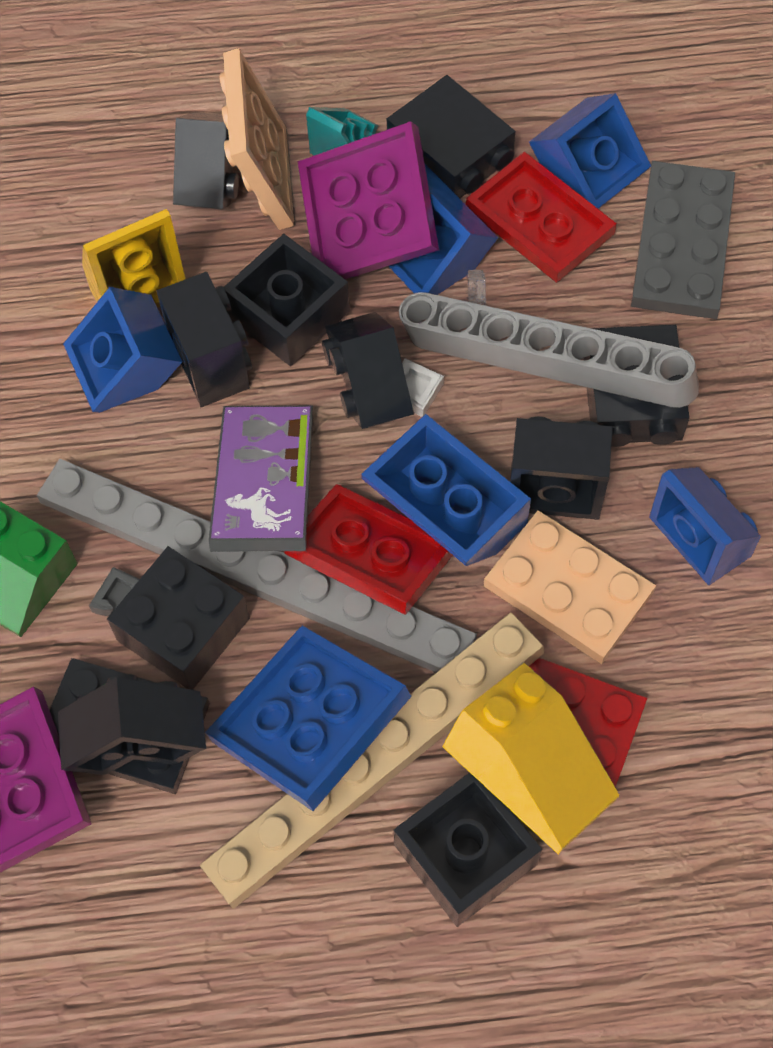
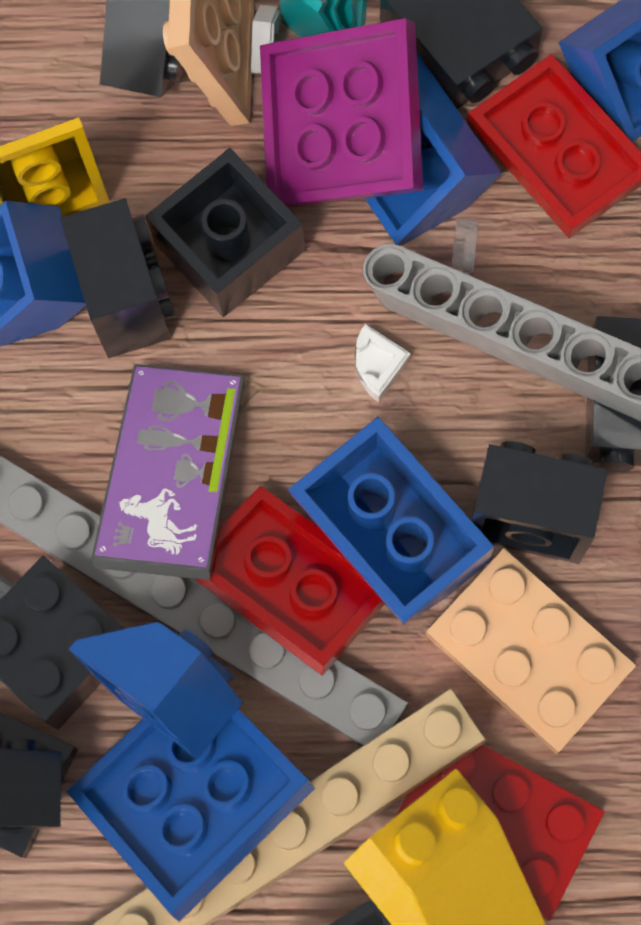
camera: 10 degrees right, 10 degrees up
(276, 625) = (164, 681): none -> blue slope
(298, 151) = (263, 32): none -> white tile
(372, 369) = (315, 326): black brick -> none

